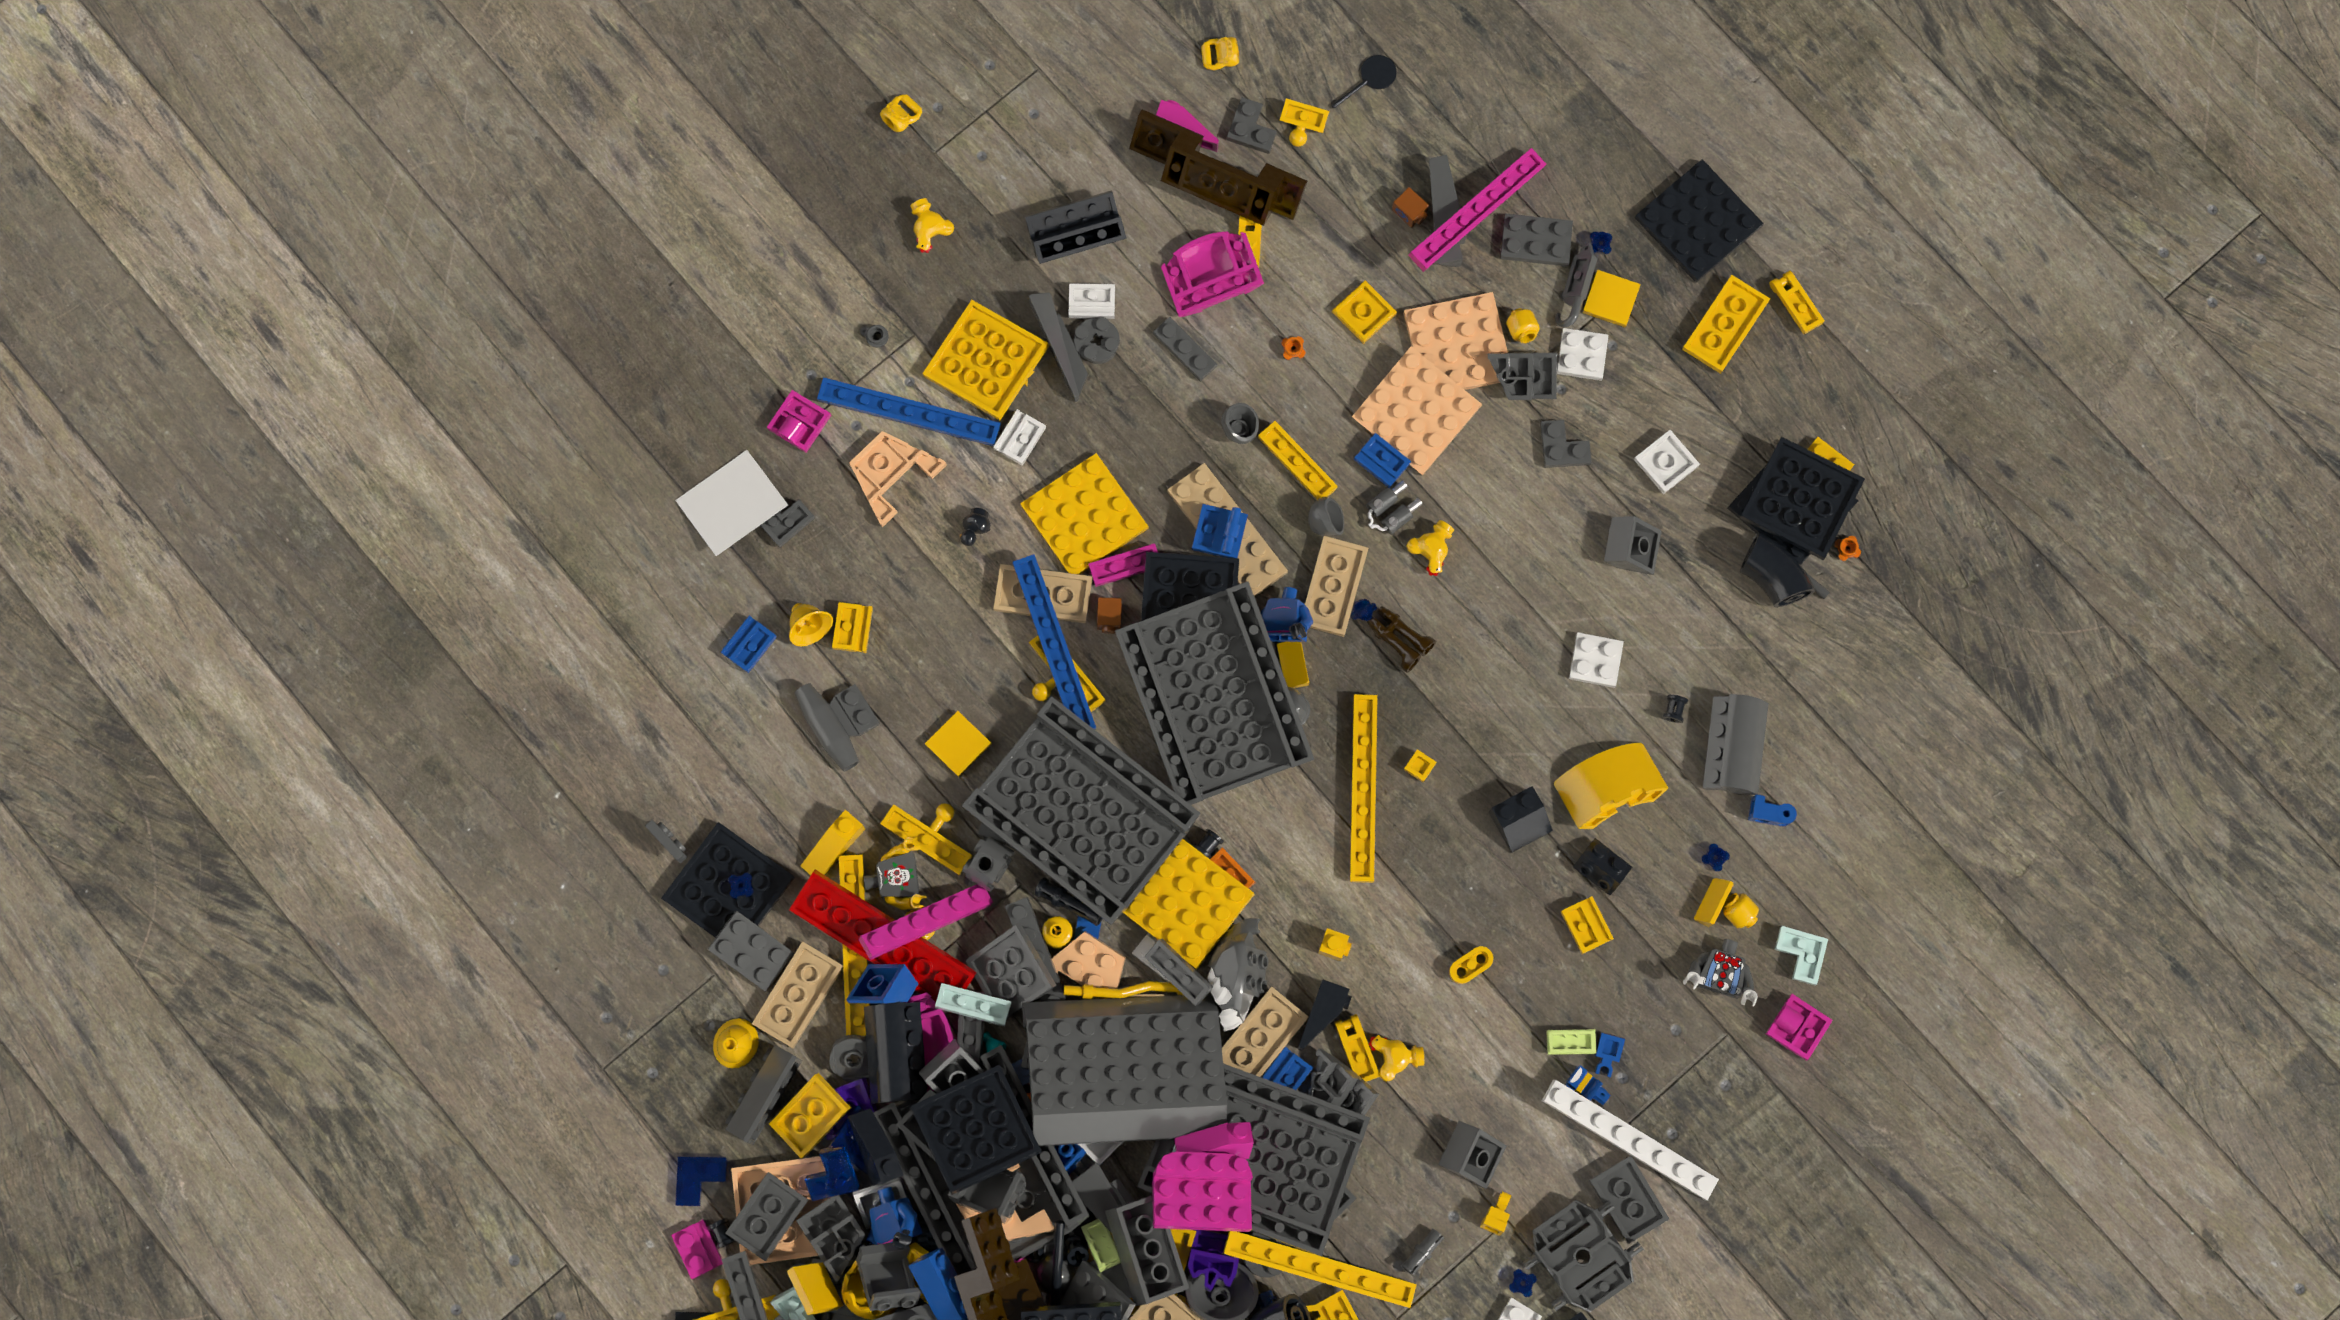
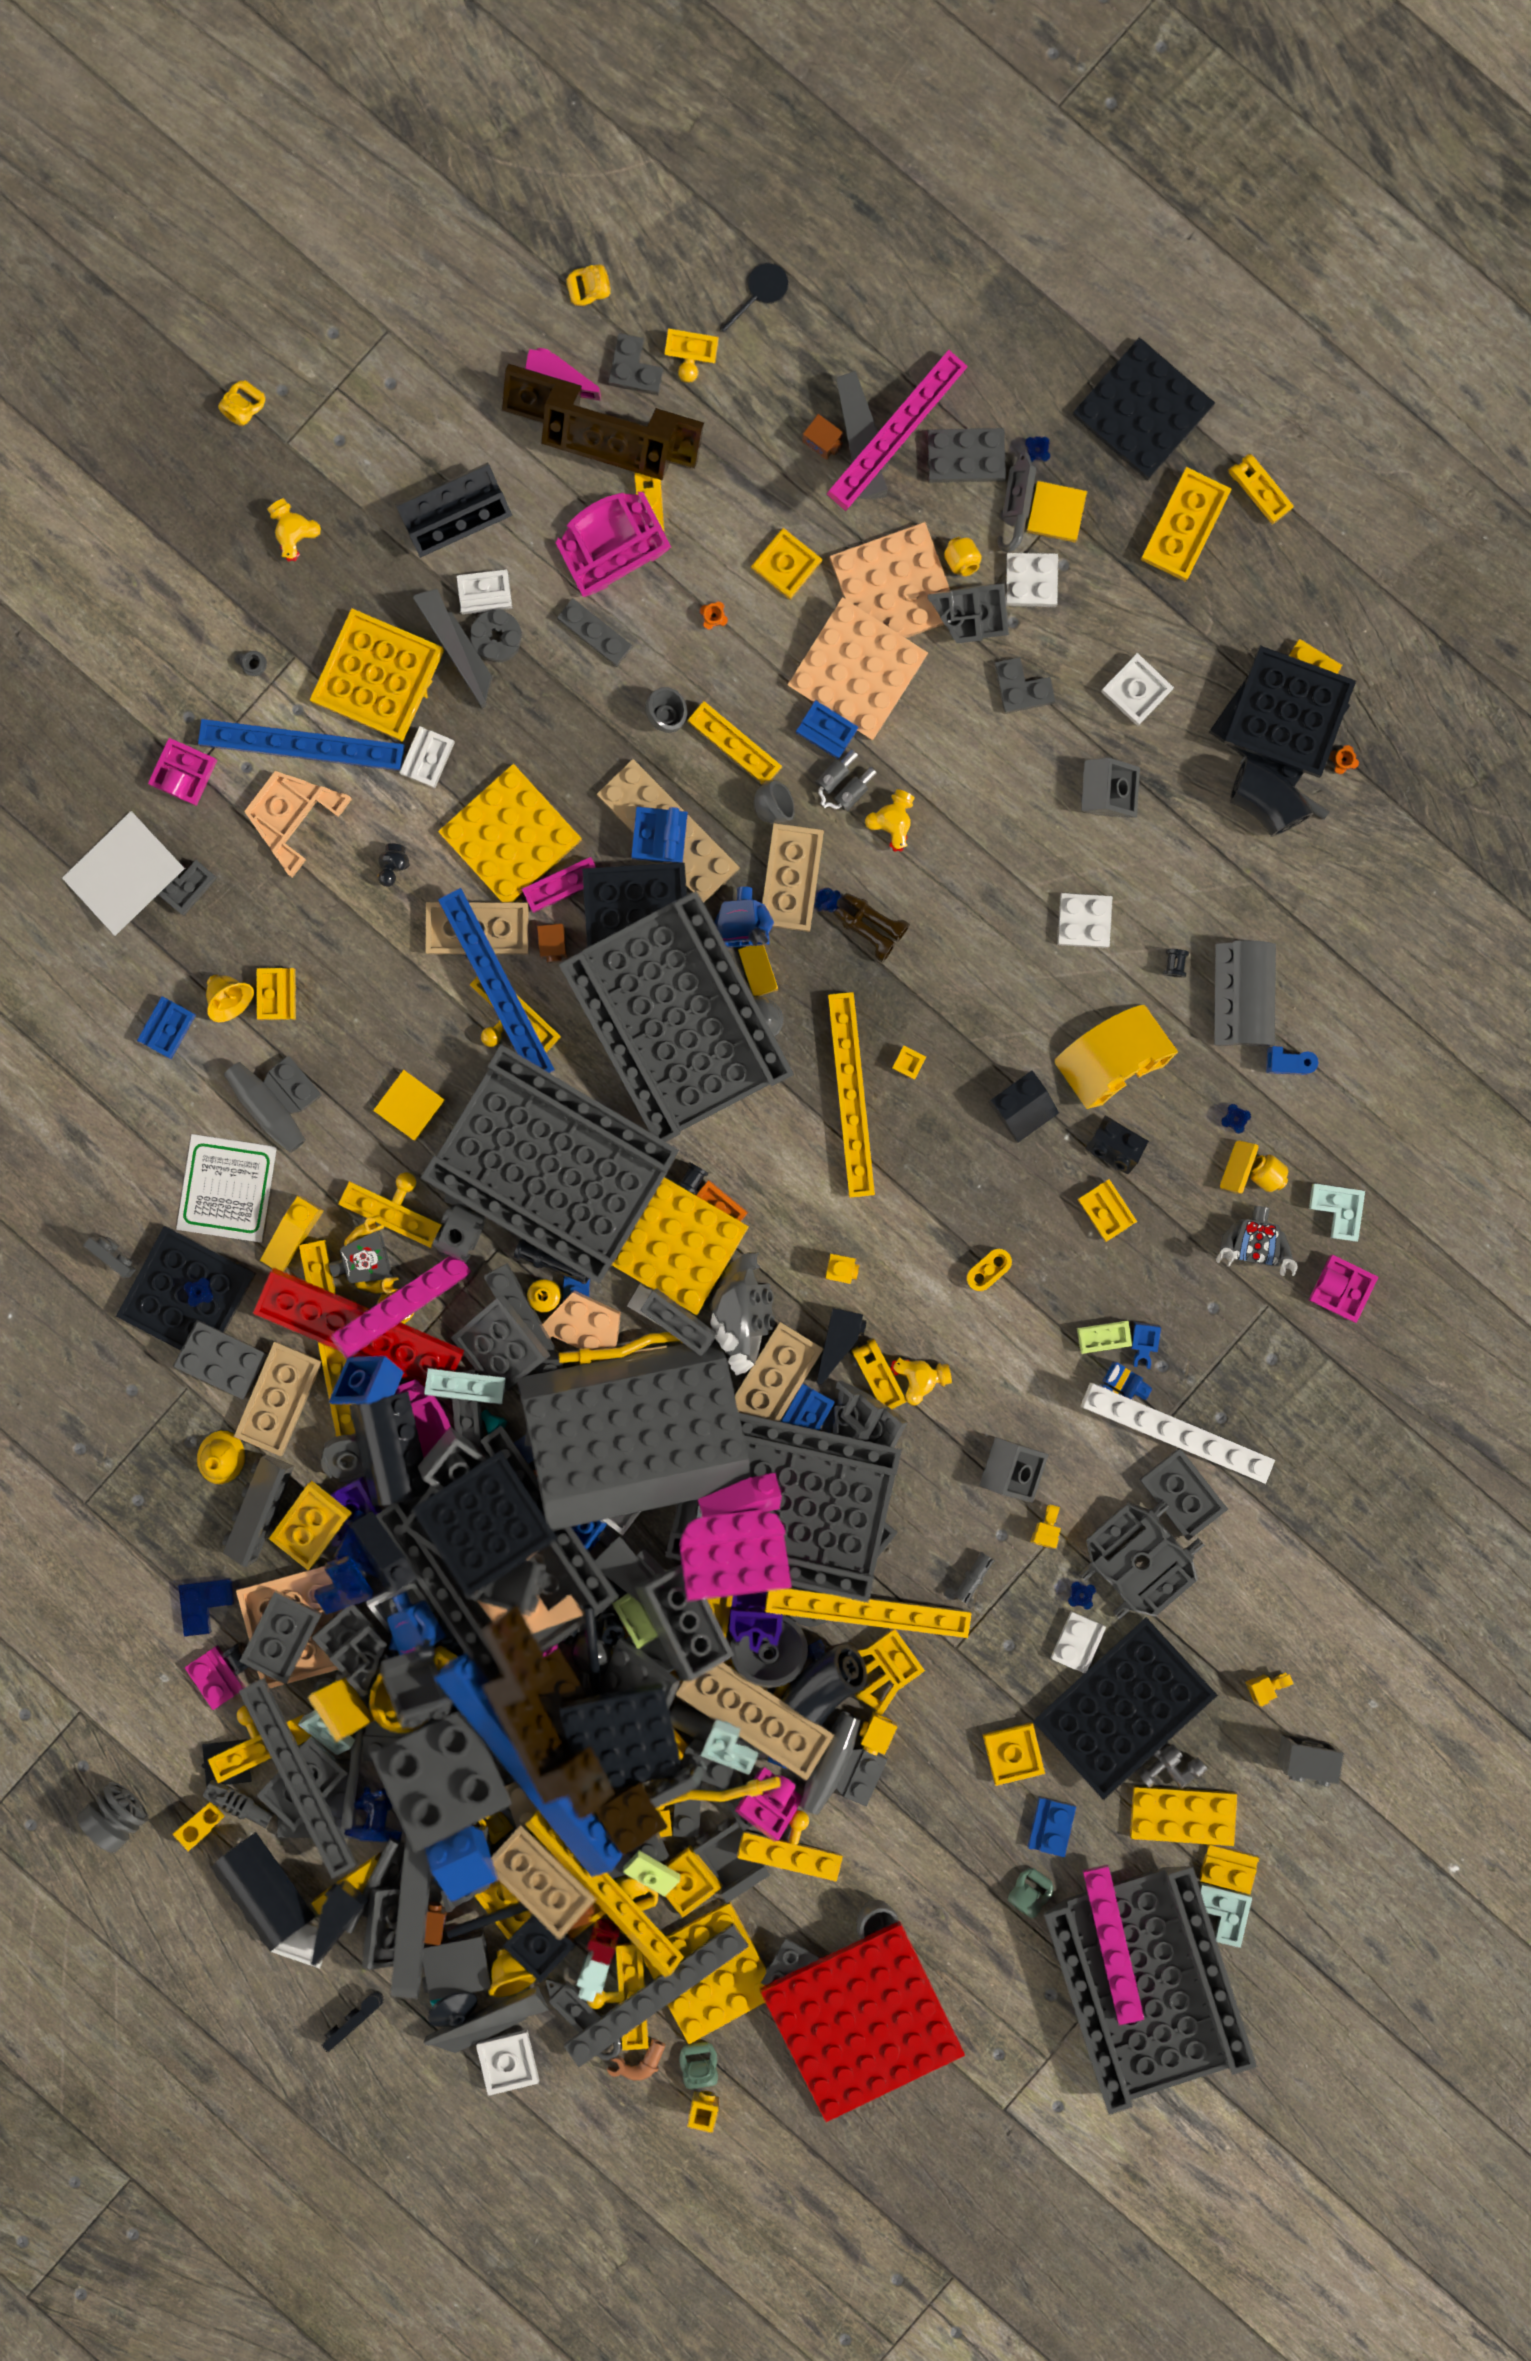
camera: 10 degrees left, 10 degrees up
(779, 797) = (226, 1188): none -> white sticker

